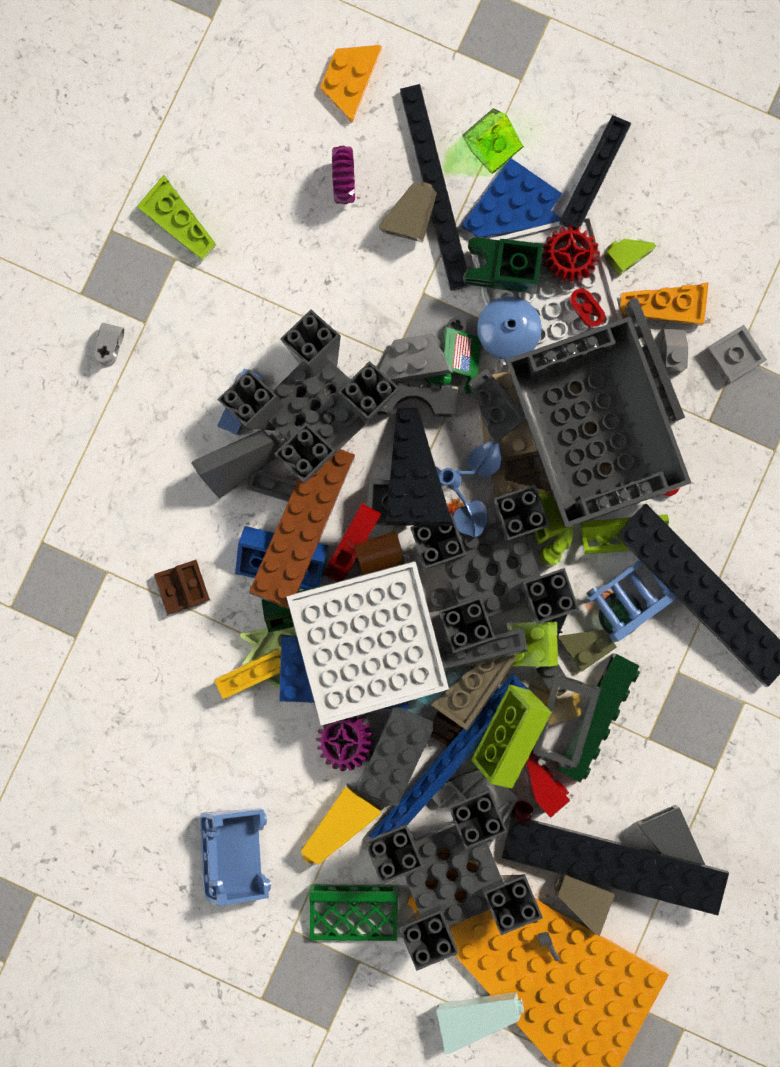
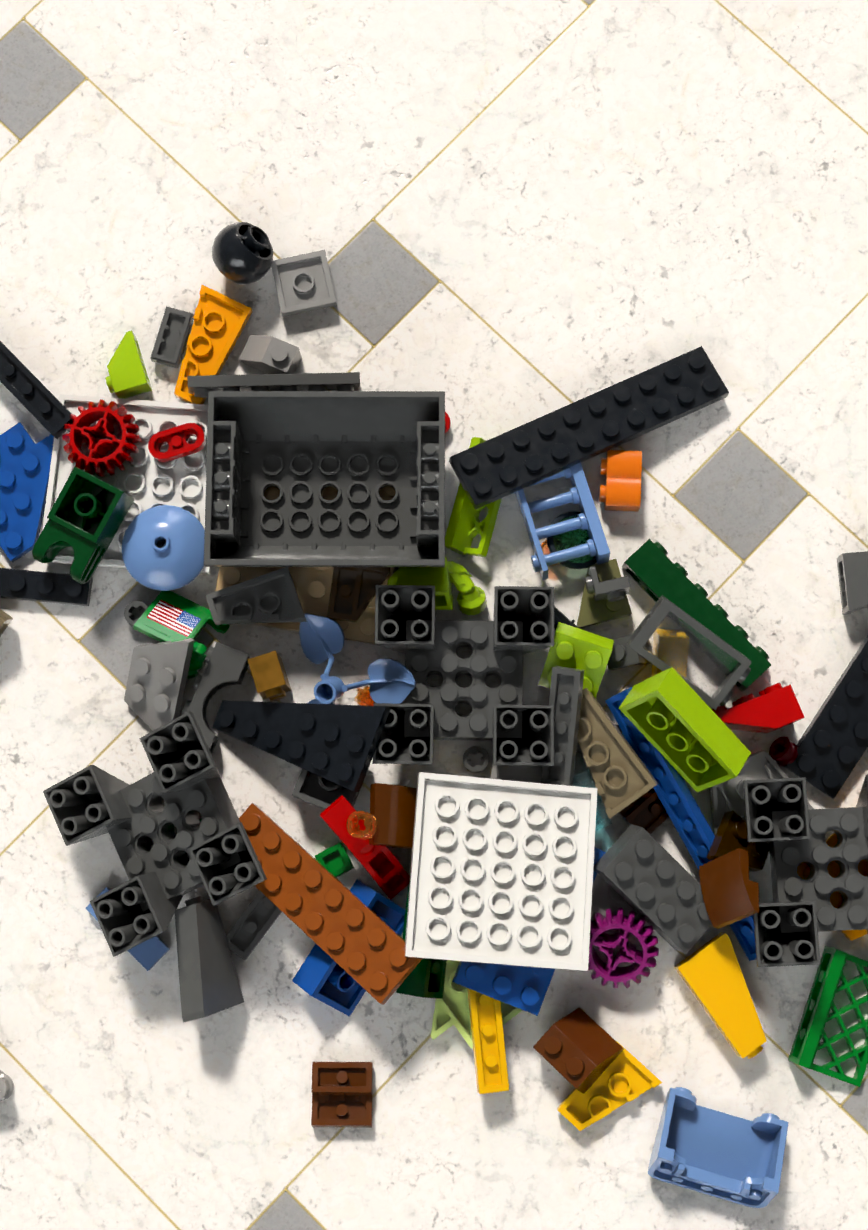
camera: 65 degrees left, 5 degrees down
(249, 765) = (617, 1085): none -> yellow wing
(267, 737) = (578, 1049): none -> reddish brown slope
(336, 525) = (335, 860): none -> green tile
(368, 540) = (353, 826): none -> clear orange bush
(410, 803) = (727, 888): none -> reddish brown slope
(441, 797) = (733, 835): none -> dark brown wing
(445, 434) = (269, 676): none -> pearl gold brick
(593, 651) = (611, 589): none -> dark grey bracket
(662, 276) = (172, 337): none -> dark grey plate
(675, 632) = (622, 480): none -> orange brick
(742, 302) = (242, 252): none -> black wheel

